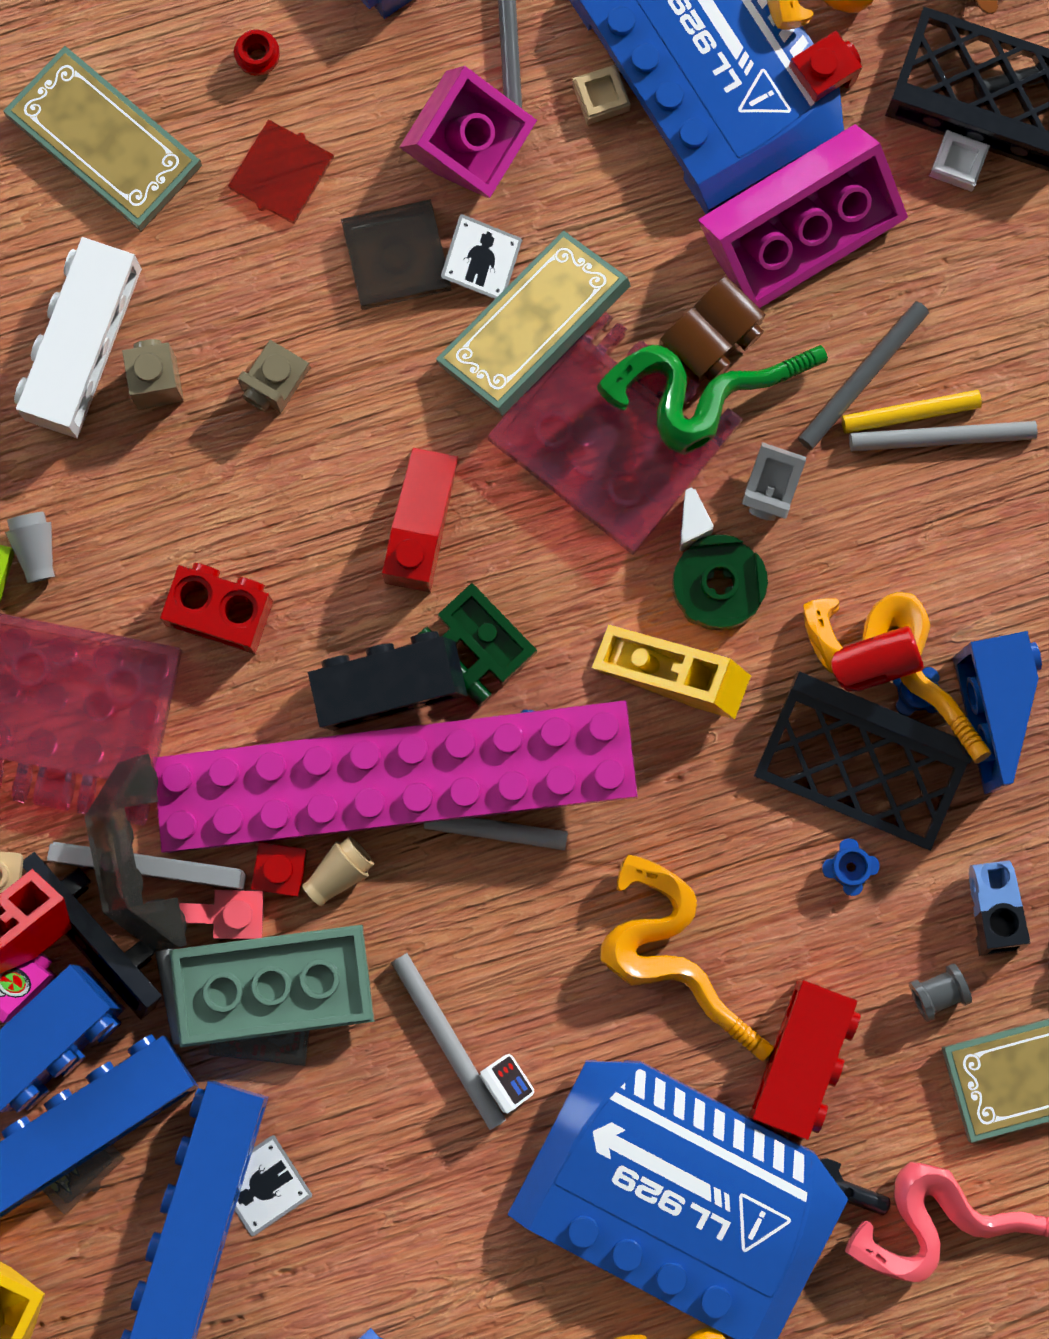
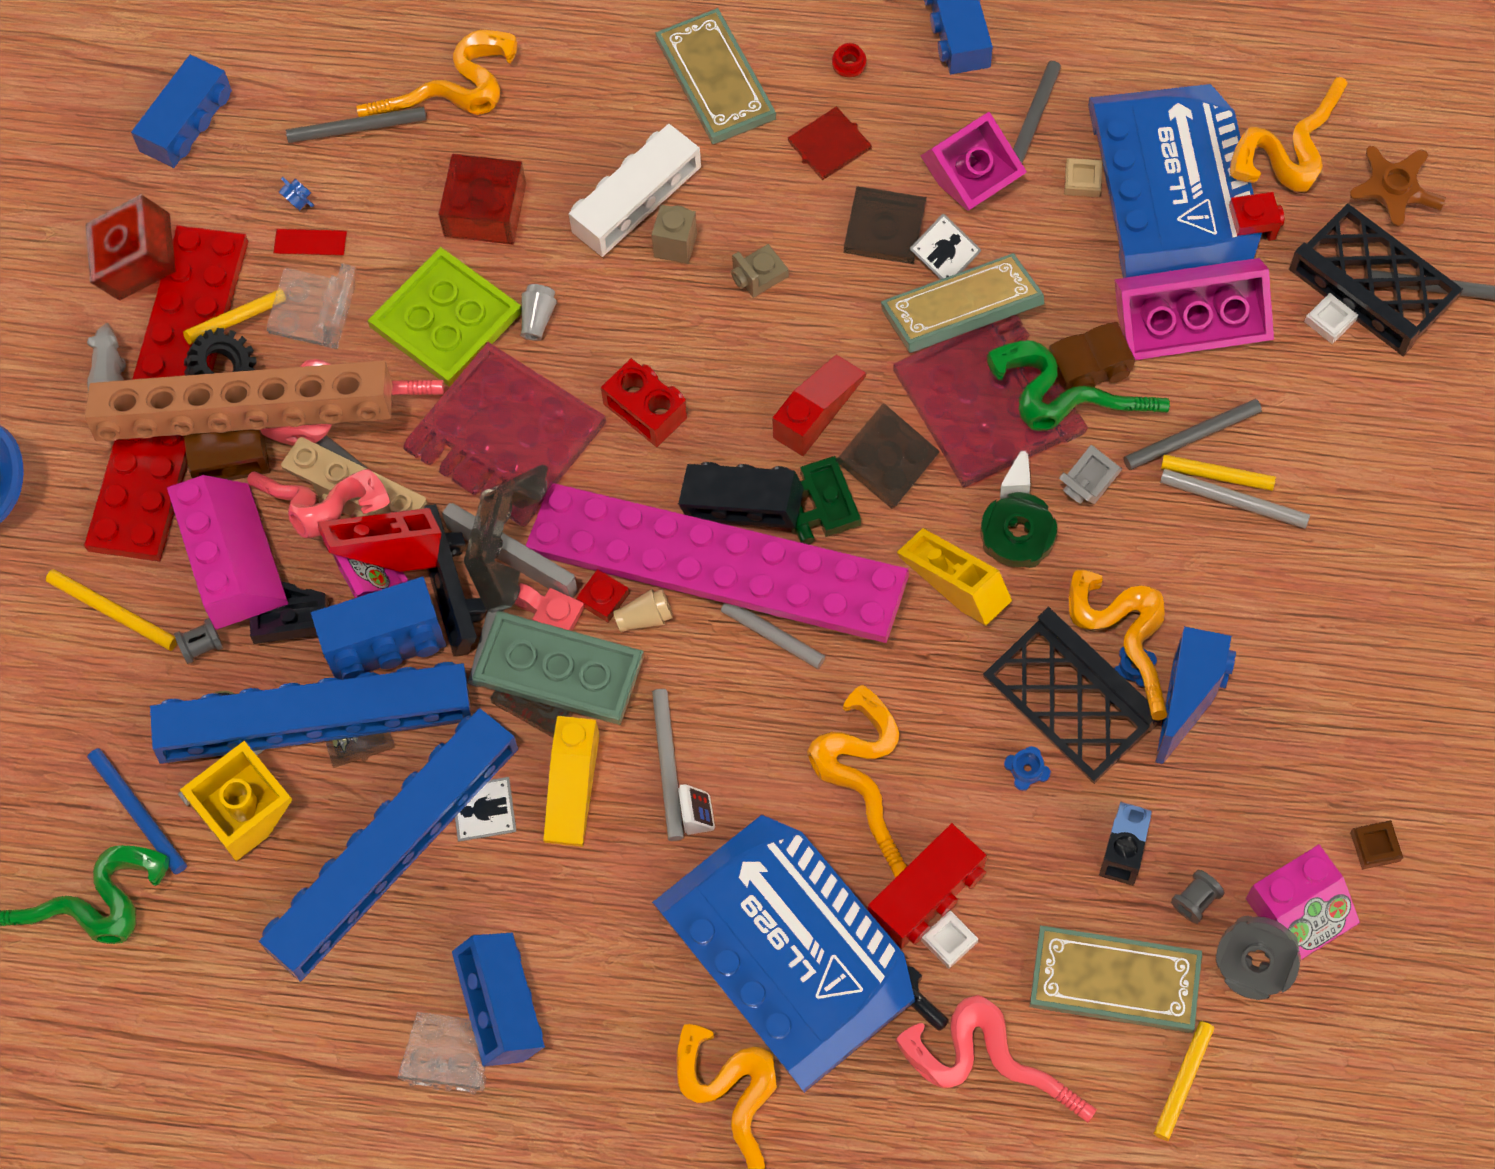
camera: 30 degrees right, 15 degrees down
(350, 1115) = (570, 780): none -> yellow slope
(531, 555) = (887, 456): none -> clear smoke plate
(852, 1105) = (949, 939): none -> white tile
(877, 660) = (1109, 617): red arm -> none
(940, 992) = (1055, 883): dark grey bush -> none

